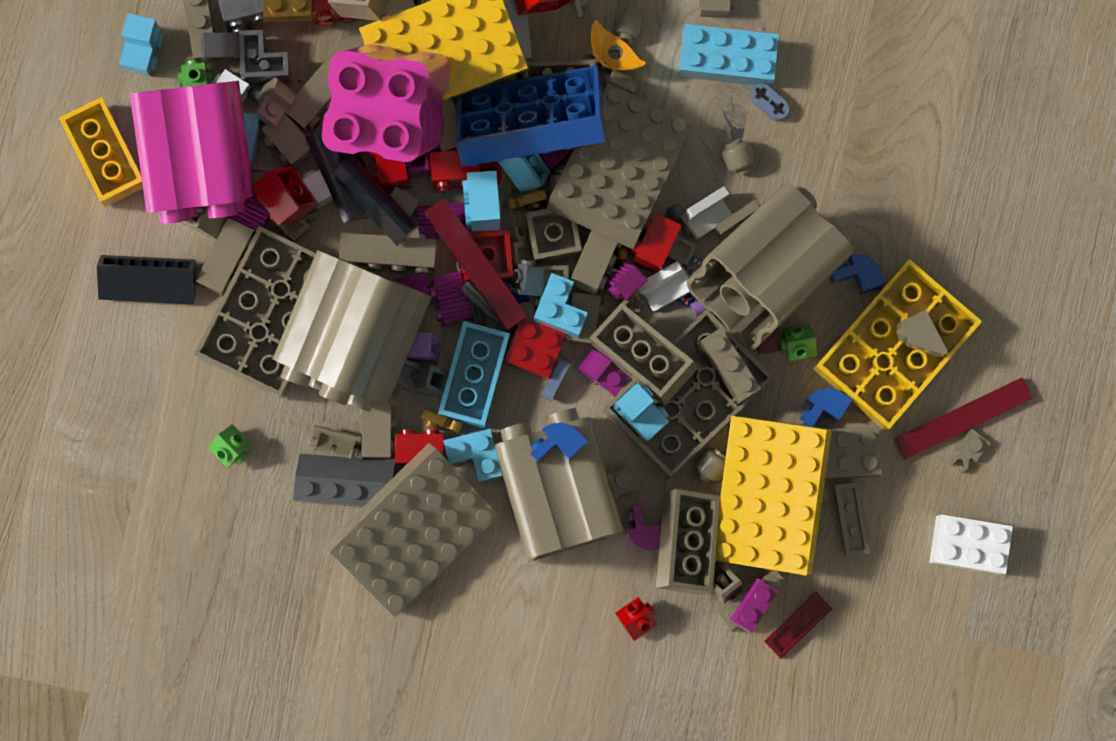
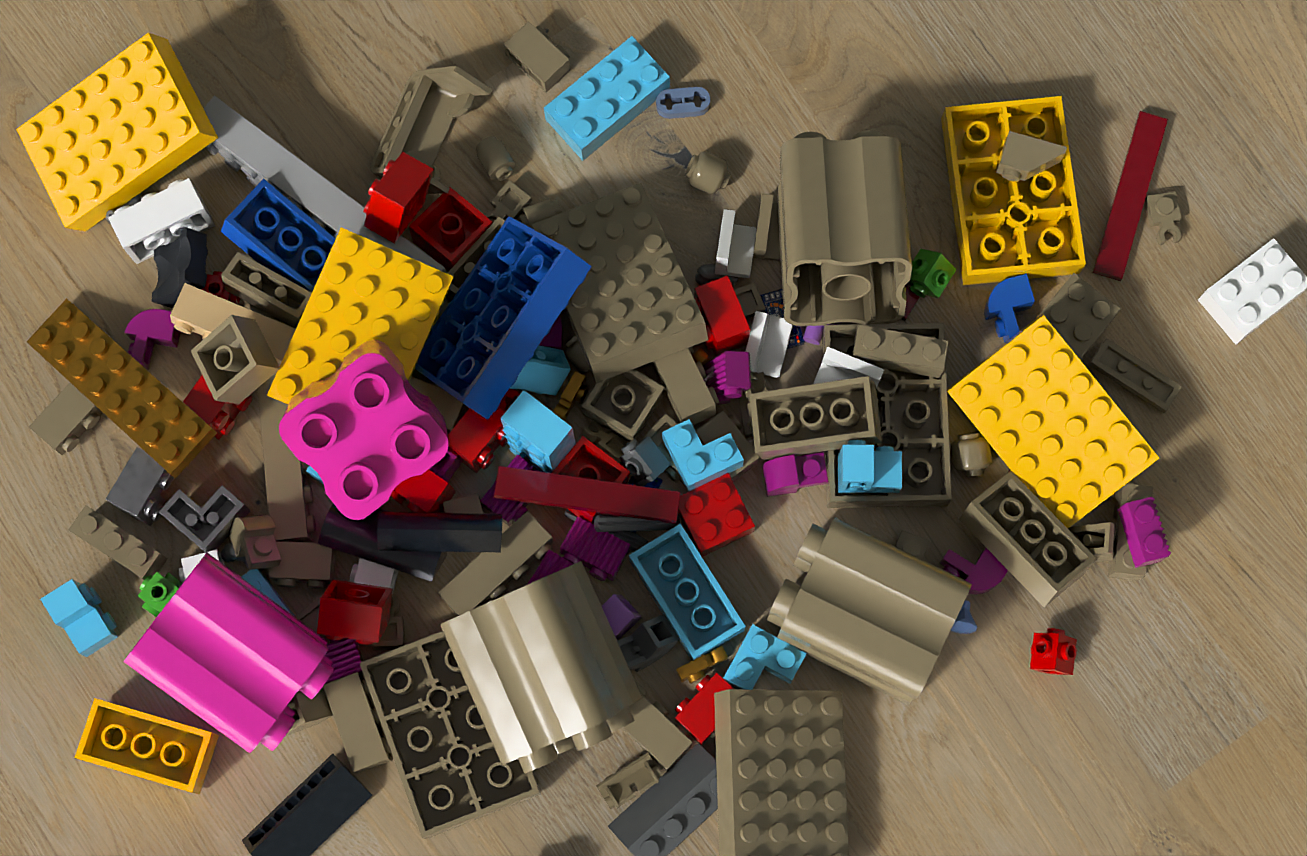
camera: 35 degrees left, 5 degrees down
(220, 45) = (155, 541): dark grey brick -> none
(556, 379) = (762, 526): sand blue beam -> none
(560, 37) = (448, 228): none -> red brick
(562, 436) = (835, 557): blue brick -> none
(601, 42) = (488, 192): light orange piece -> none
(608, 548) = (964, 622): none -> medium blue rock
(687, 341) = (841, 366): none -> white panel
(798, 625) = (1189, 513): dark red tile -> none
(865, 272) = (922, 159): blue brick -> none

